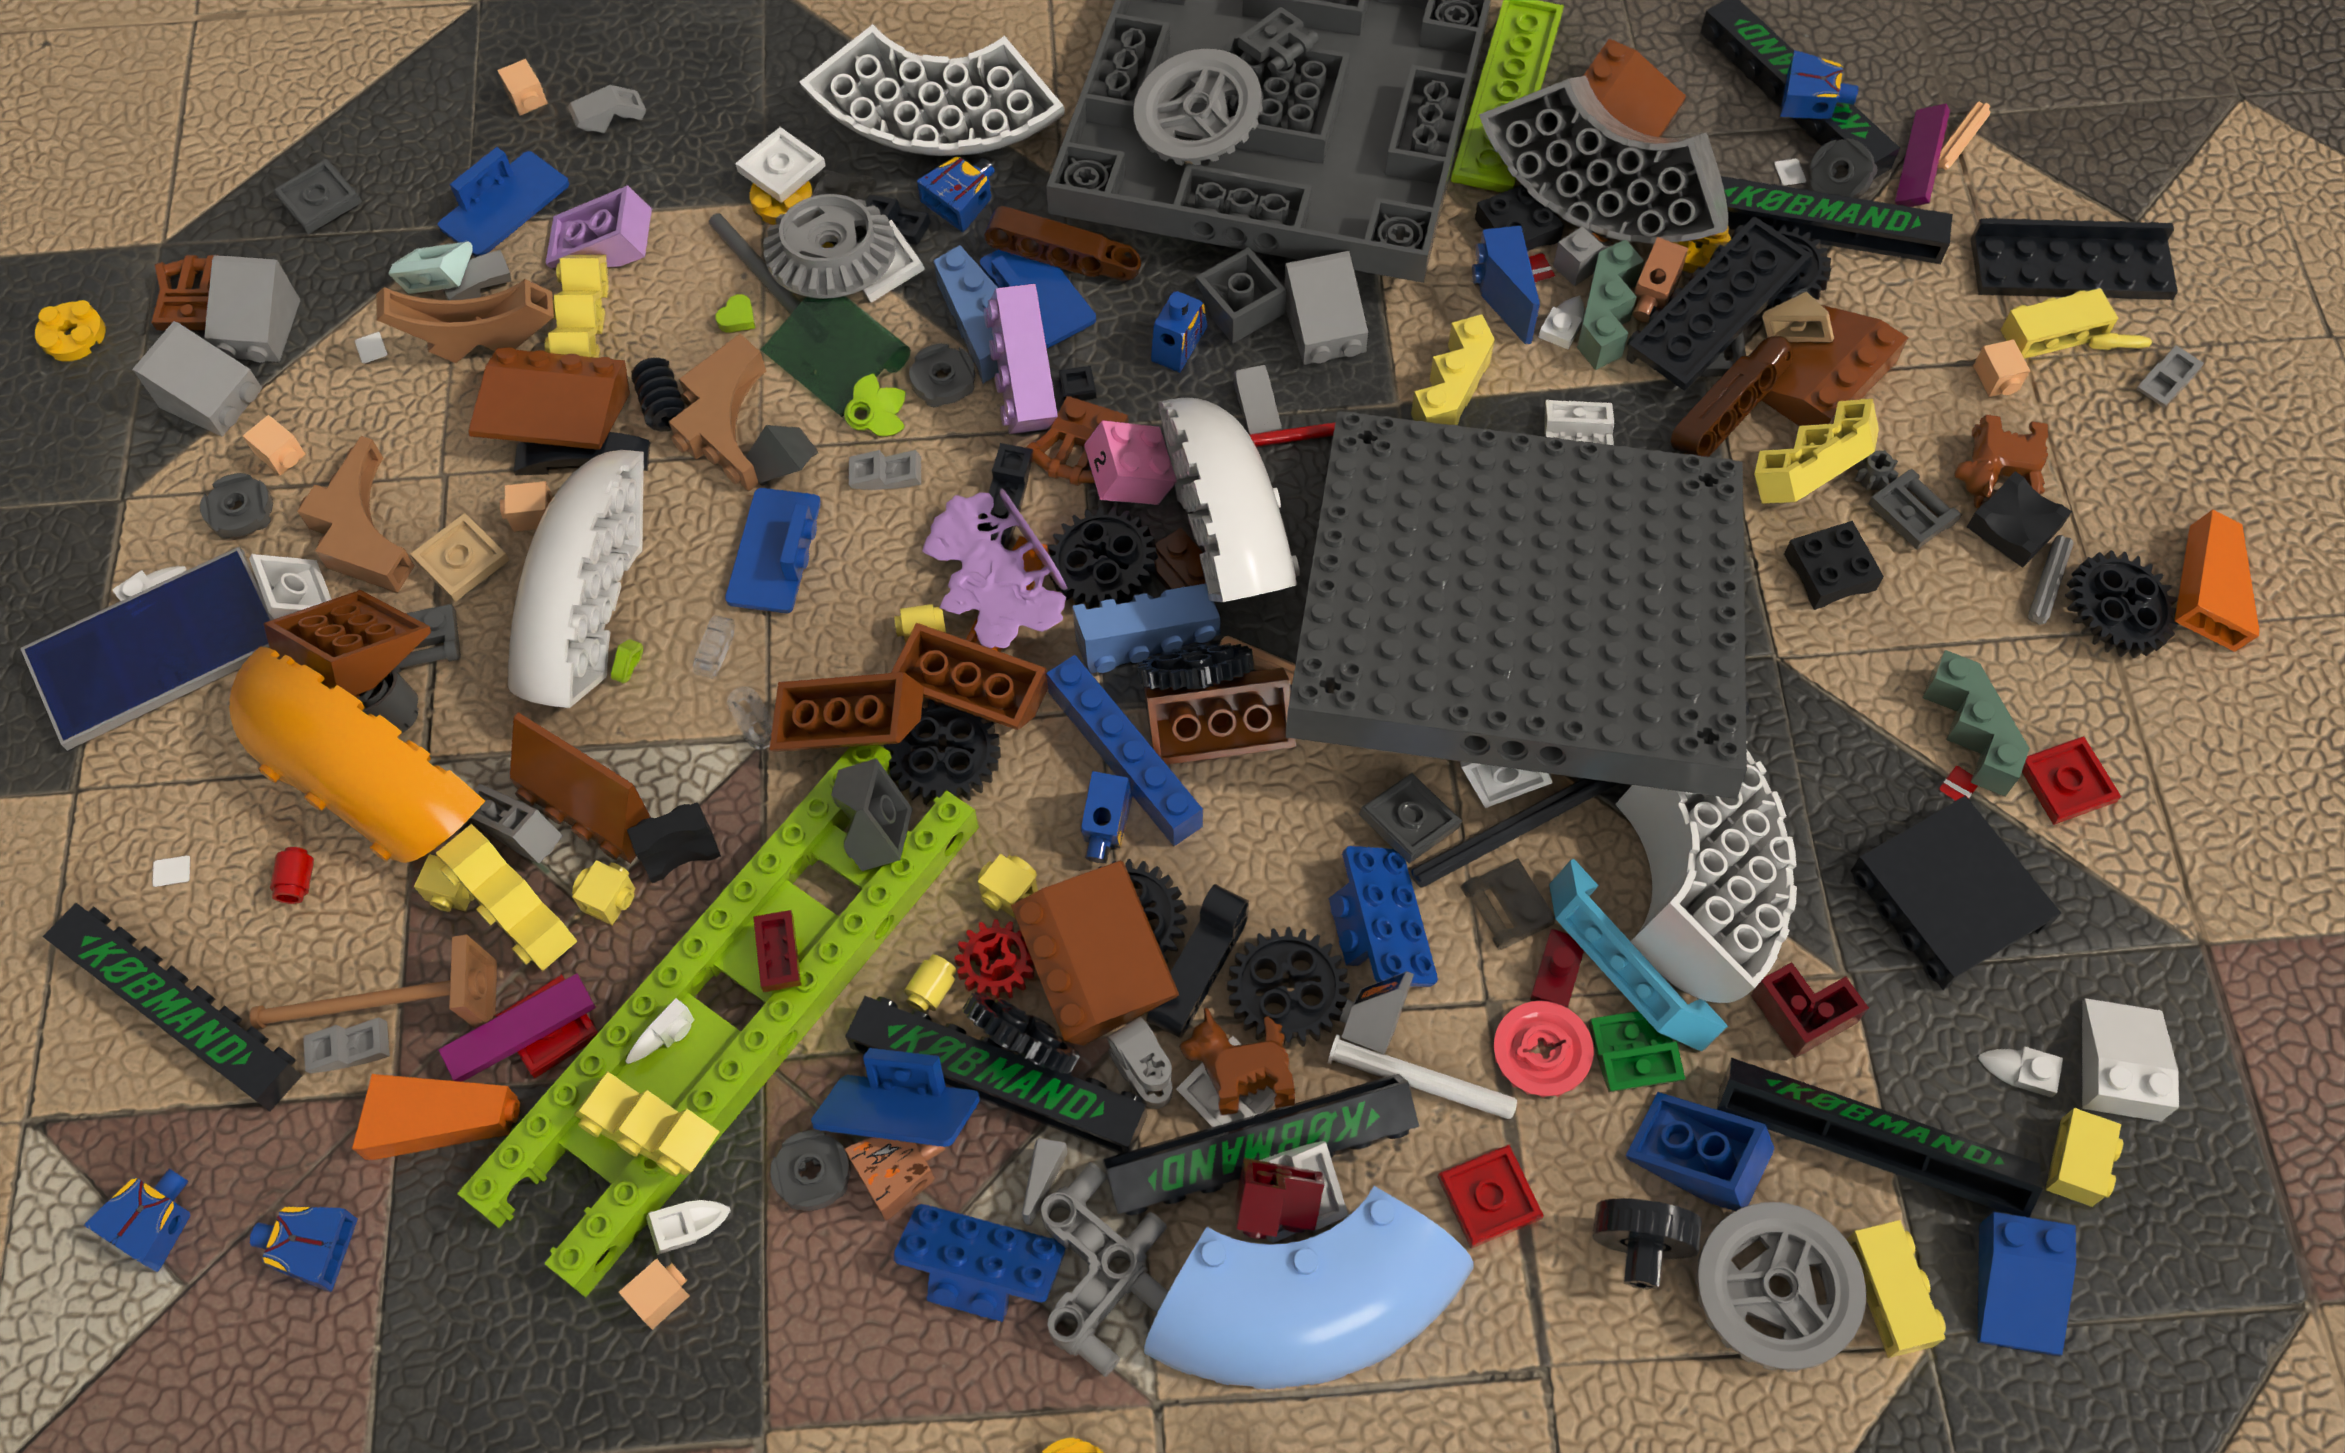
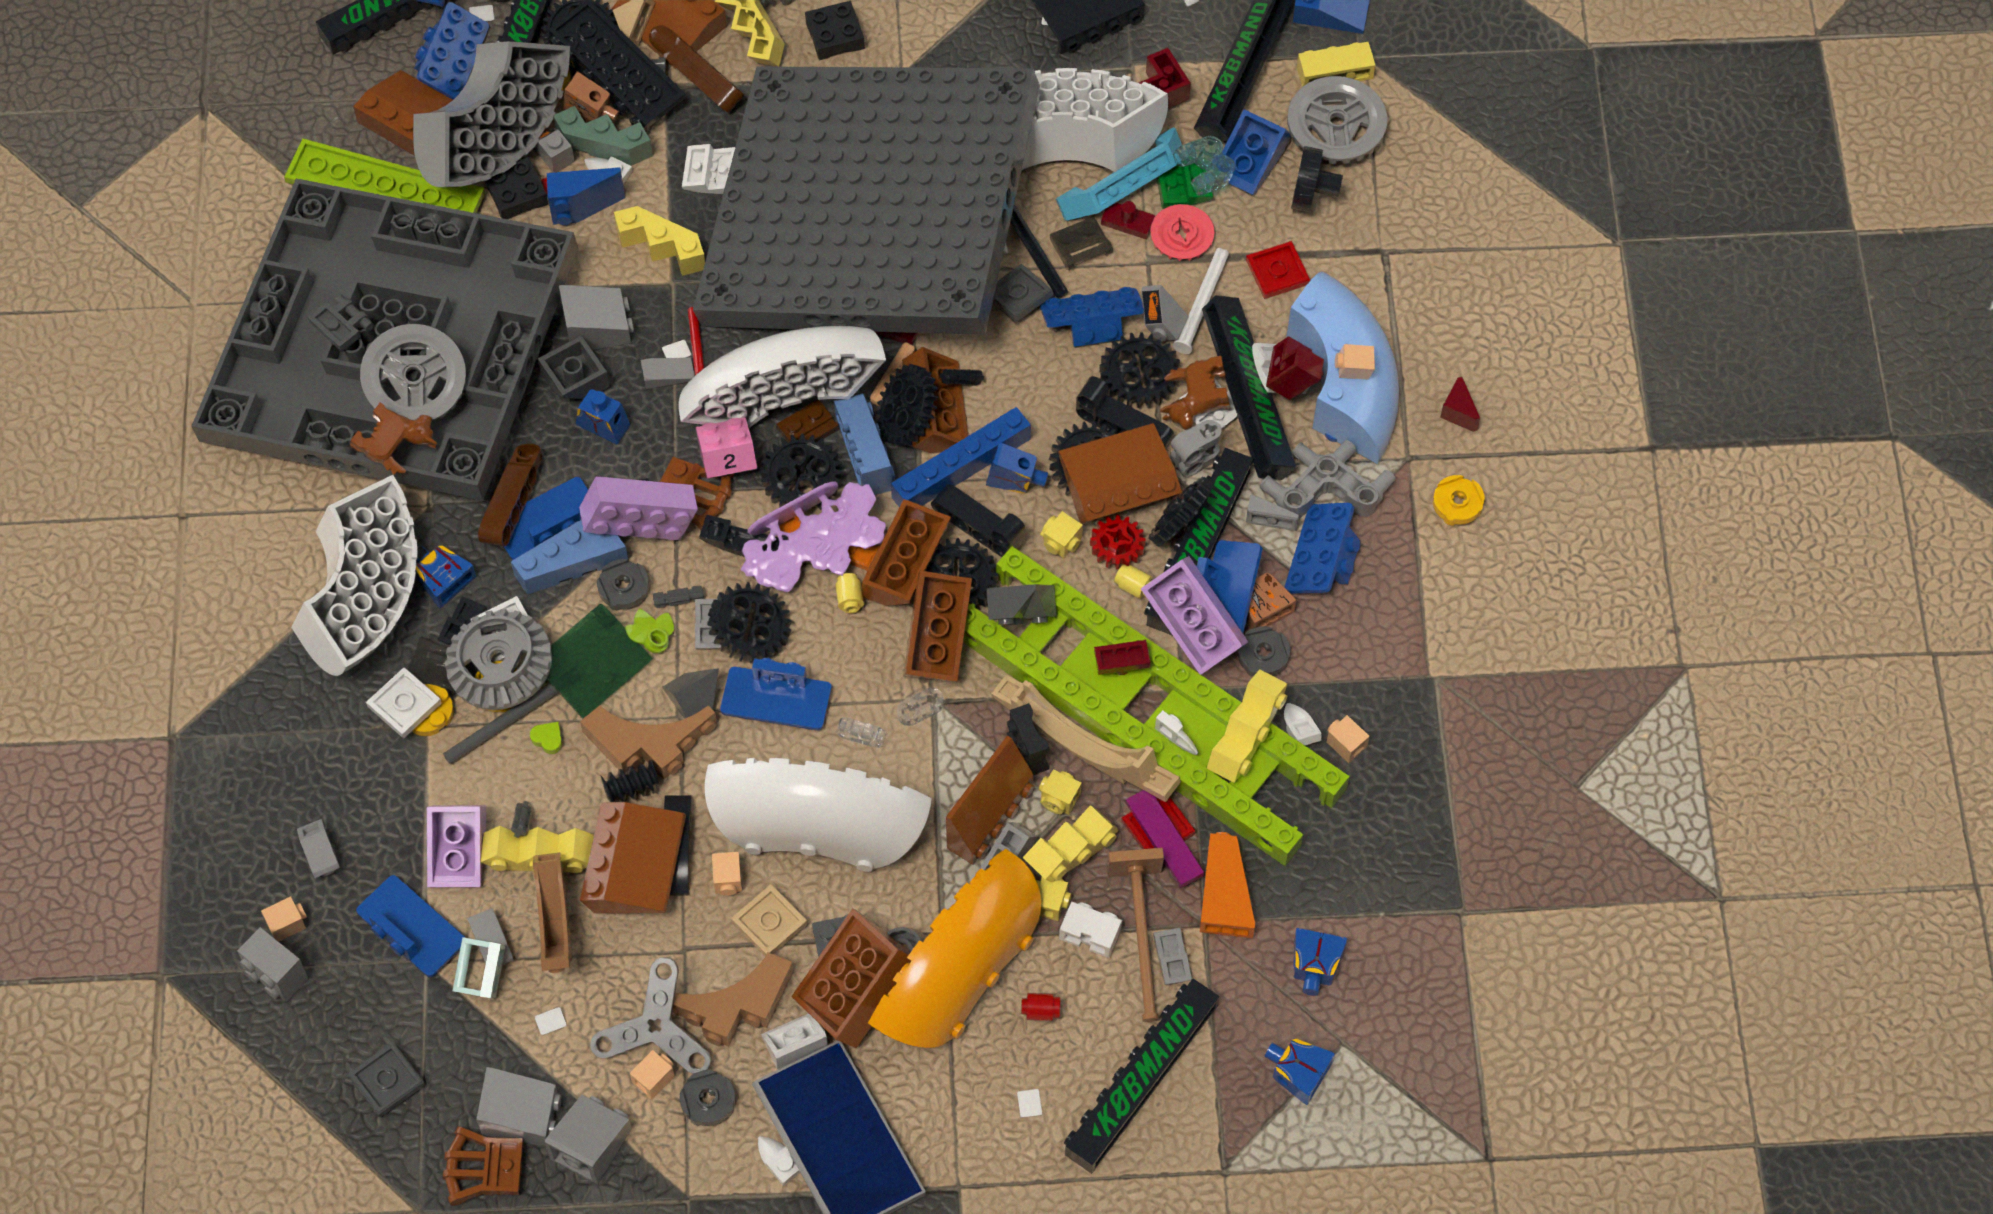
camera: 90 degrees left, 0 degrees up
(330, 437) = (637, 1031): none -> piece
(395, 936) = (1091, 928): none -> white brick
(458, 74) = (272, 965): none -> light grey brick
(616, 977) = (1121, 763): none -> tan slope
(618, 288) = (521, 819): none -> dark grey axle
(835, 1048) = (1194, 615): none -> lavender brick
(885, 481) = (725, 616): none -> black gear
(925, 435) = (678, 596): none -> dark grey axle
(1007, 802) = (979, 521): none -> black beam
(1111, 89) = (390, 433): none -> dark orange animal
(1259, 743) = (961, 376): none -> black axle
(1263, 1281) = (1355, 361): none -> light nougat brick
(1293, 414) = (677, 350): none -> white sticker
(1677, 1053) = (1207, 155): none -> clear light blue piece
(1740, 139) = (450, 50): none -> blue bracket

